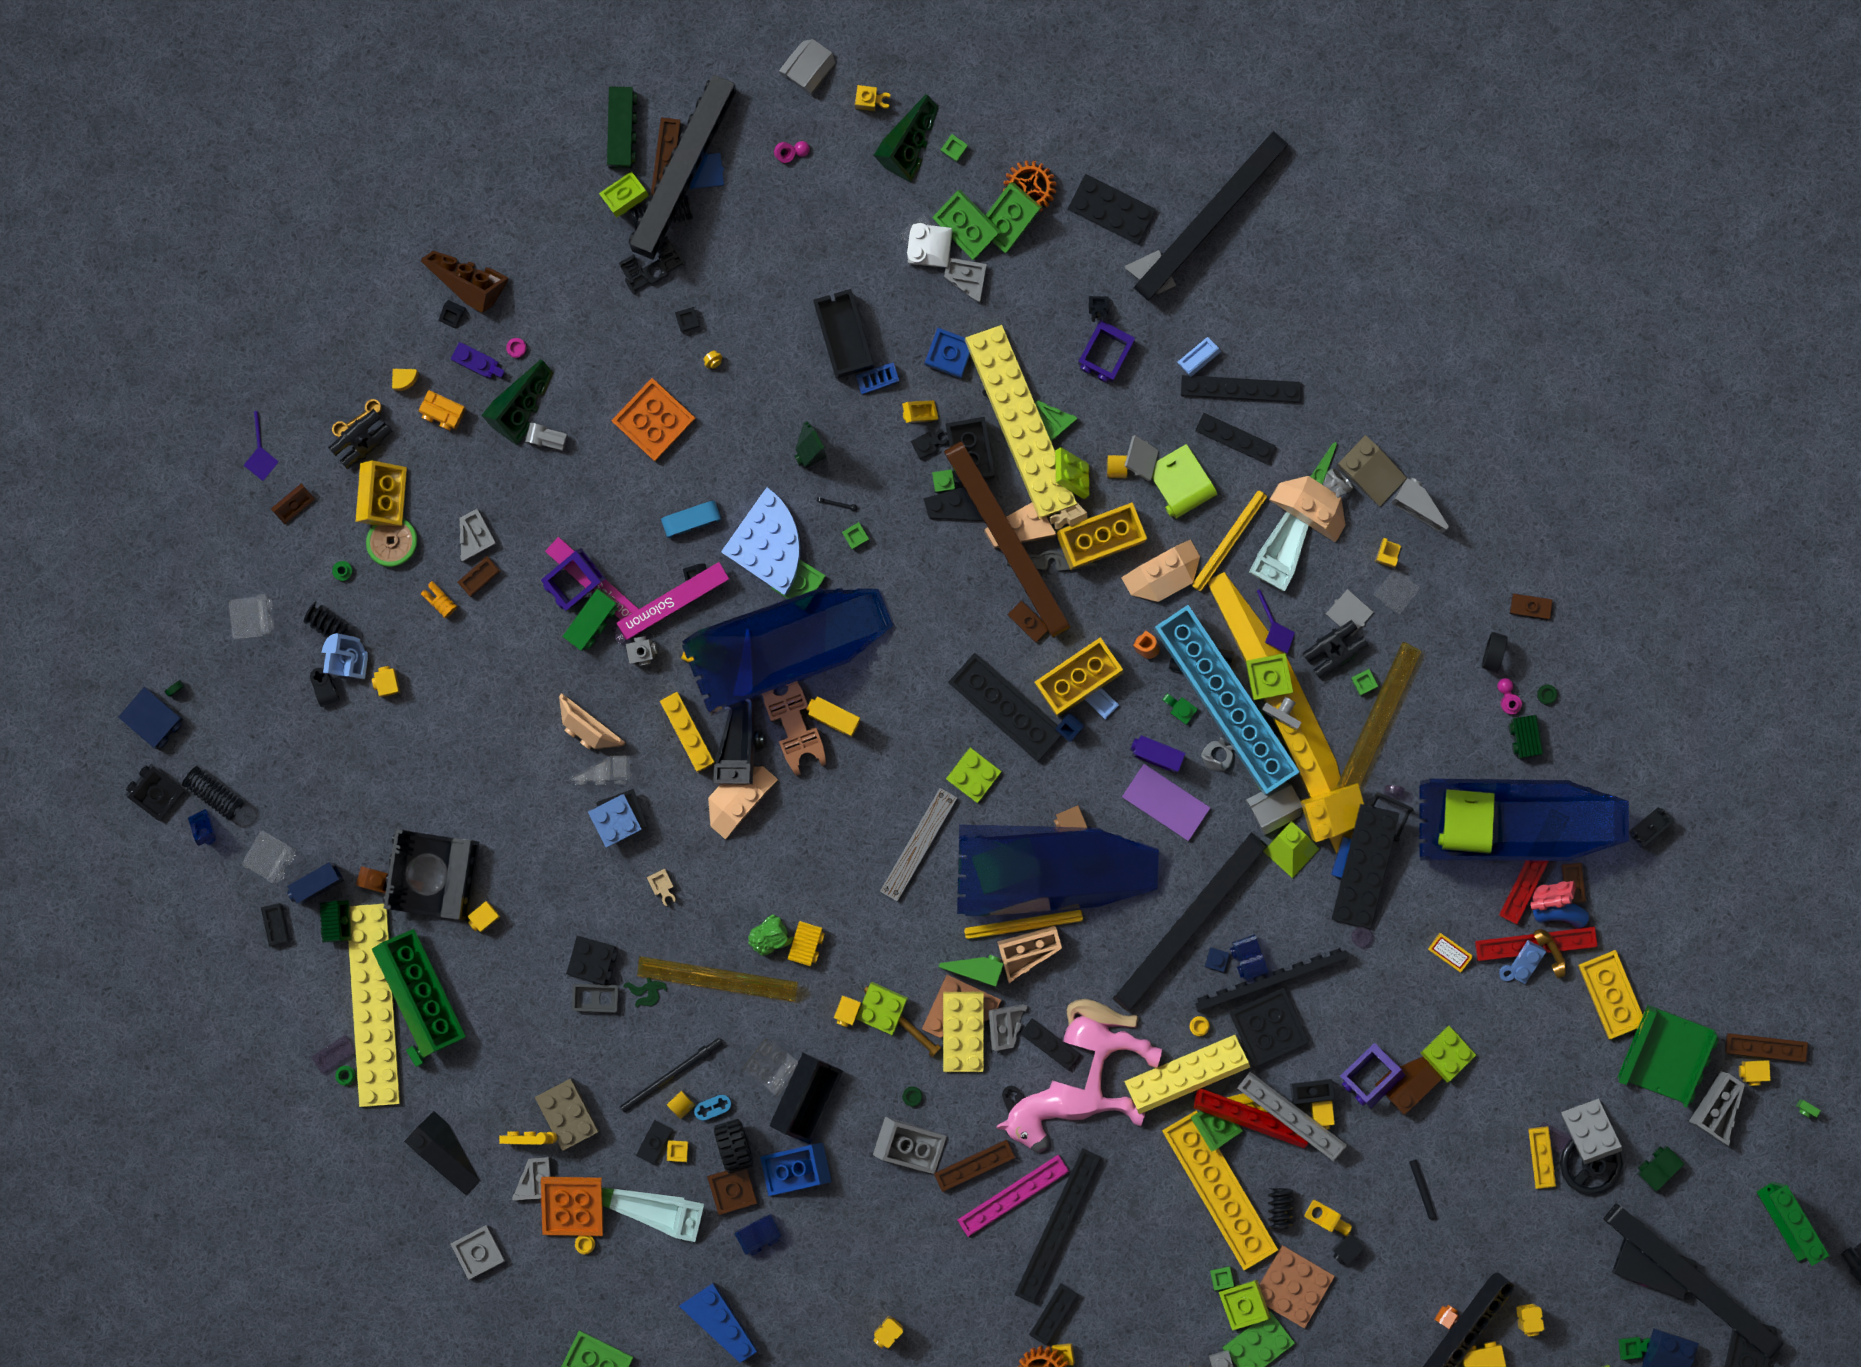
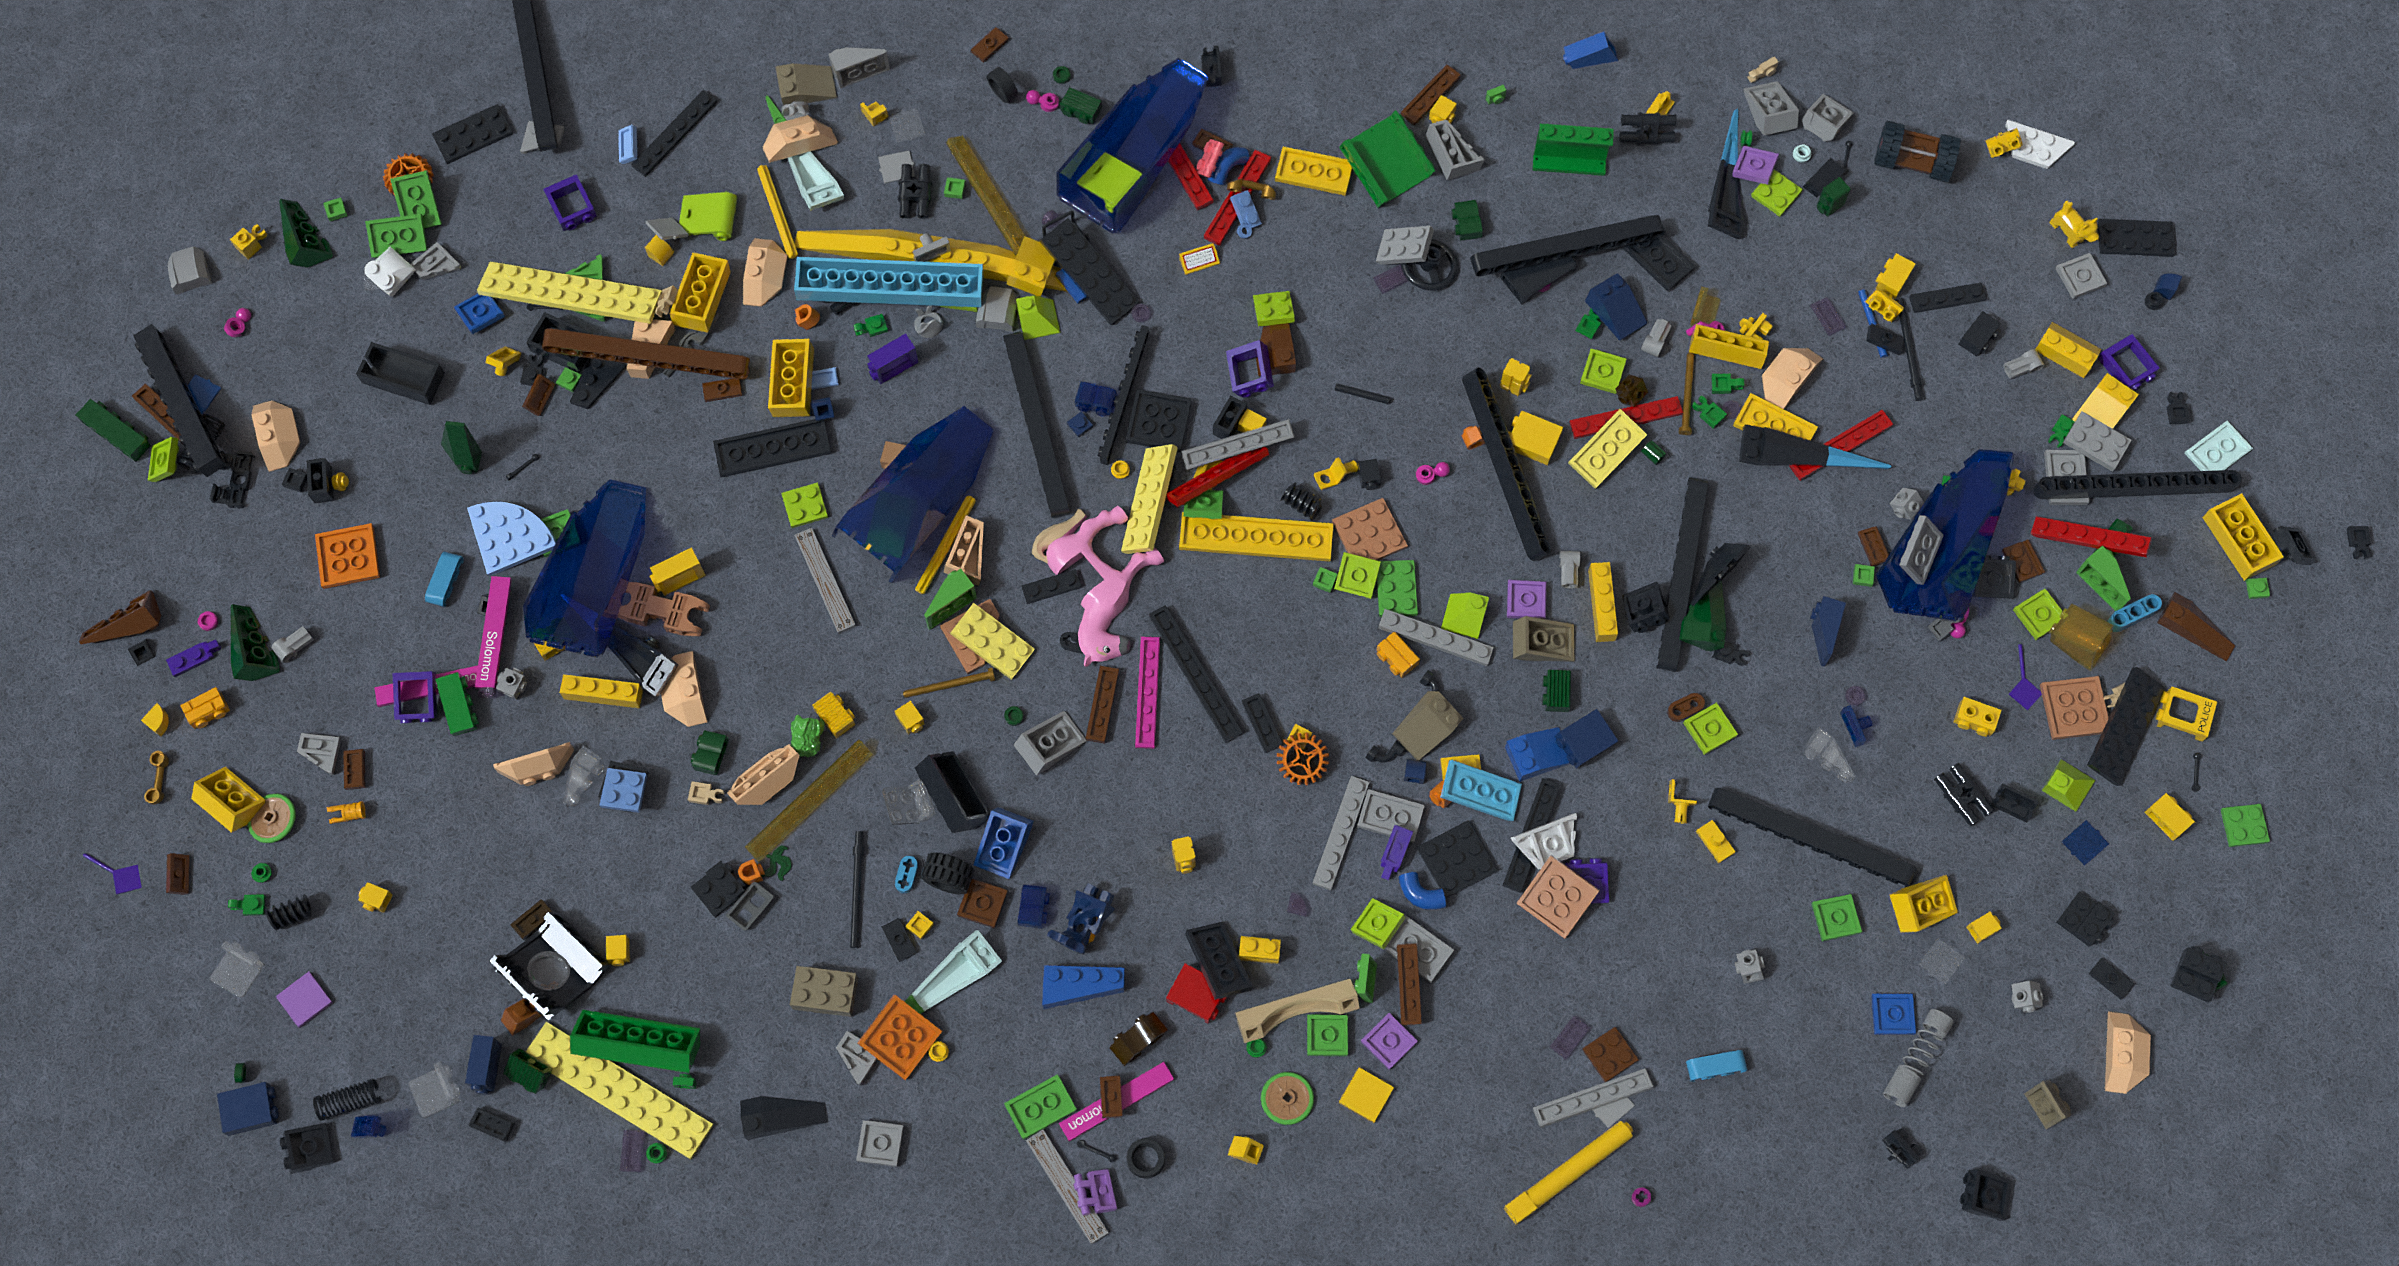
camera: 55 degrees left, 15 degrees down
(267, 690) = (304, 999): none -> medium lavender tile
(311, 584) = (251, 905): none -> green plate
(323, 690) = (339, 950): black piece -> none
(345, 656) = (327, 915): light blue brick -> none
(360, 429) = (164, 788): black pin -> none
(459, 826) = (531, 920): none -> dark brown plate
(530, 1137) = (818, 1033): yellow plate -> none
(623, 978) = (751, 872): none -> orange plate
(681, 1104) = (885, 896): yellow brick -> none
(699, 864) = (710, 752): none -> dark green brick
(700, 343) = (319, 480): none -> black brick
(710, 927) = (765, 777): none -> light nougat wedge
(717, 267) = (275, 433): none -> light nougat wedge
(789, 1289) = (1093, 915): none -> dark blue hips
(855, 535) = (556, 468): bright green plate -> none
(882, 1008) = (928, 690): lime plate -> none
(894, 380) = (466, 363): blue slope -> none
(910, 467) = (538, 395): none -> reddish brown plate
(1005, 1025) = (1012, 608): light grey wing -> none
(1072, 473) = (636, 280): lime plate -> none
(1098, 307) = (534, 186): black plate -> none
(1165, 802) = (934, 382): medium lavender tile -> none
(1235, 438) = (706, 160): black plate -> none
(1269, 676) = (896, 240): lime plate -> none
(1278, 635) = (872, 224): dark purple piece -> none
(1398, 1309) = (1442, 469): none -> dark pink plate
(1542, 1157) = (1399, 294): yellow tile -> none

